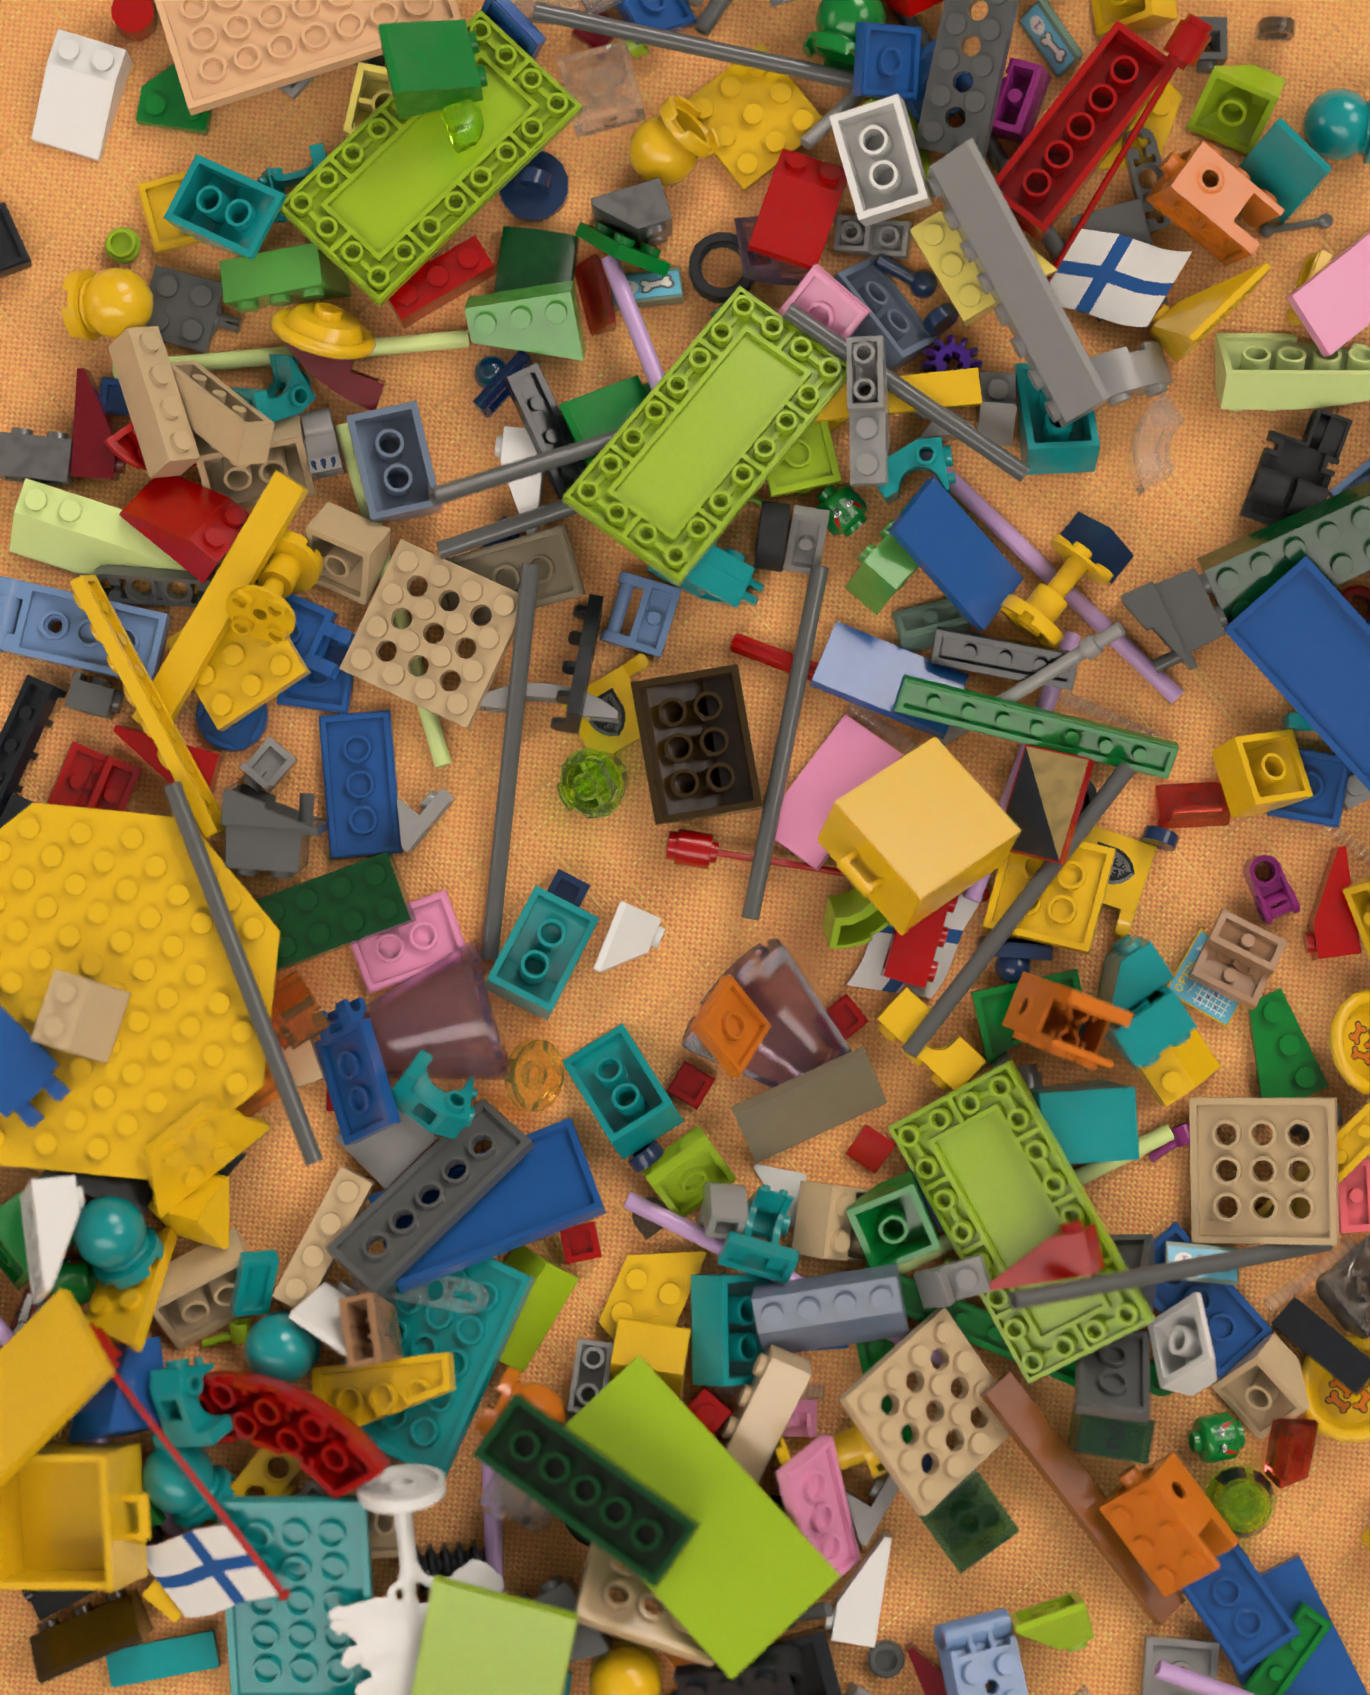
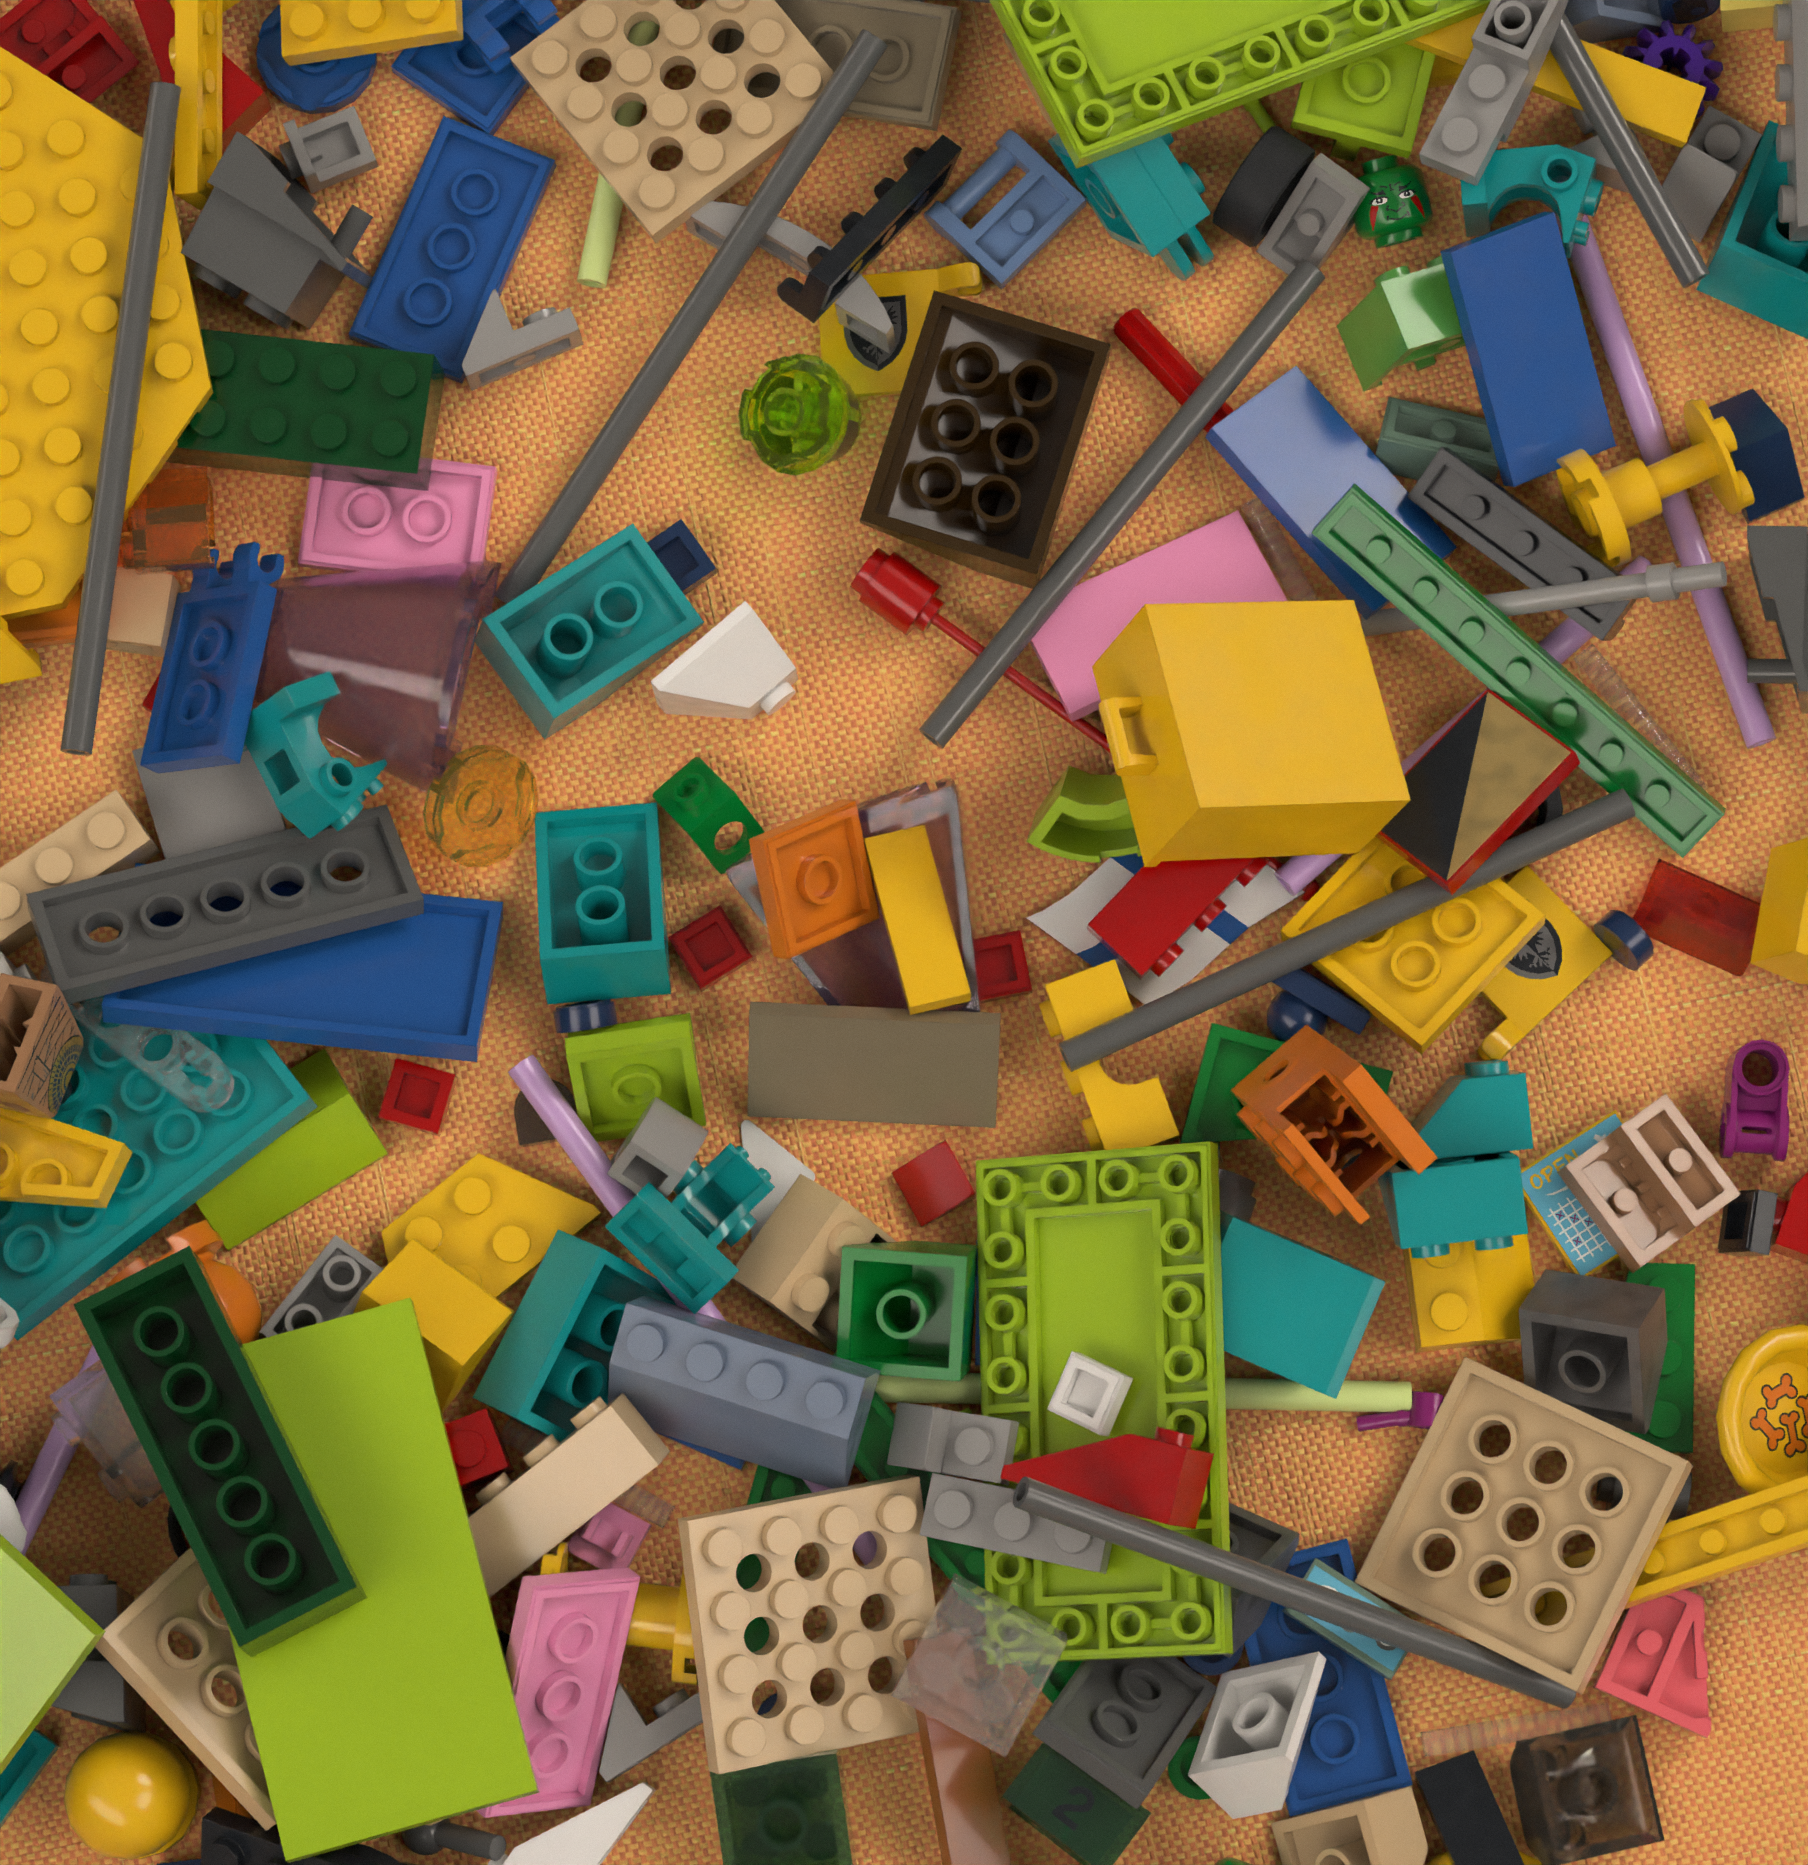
camera: 35 degrees right, 5 degrees down
(650, 1014) = (704, 804): none -> green bracket
(795, 1020) = (917, 920): none -> yellow tile
(993, 1311) = (987, 1519): none -> light grey plate
(1012, 1221) = (1090, 1393): none -> white tile
(1030, 1392) = (979, 1664): none -> clear brick
(1253, 1059) = (1595, 1345): none -> flat silver slope
(1298, 954) = (1748, 1224): none -> black tile

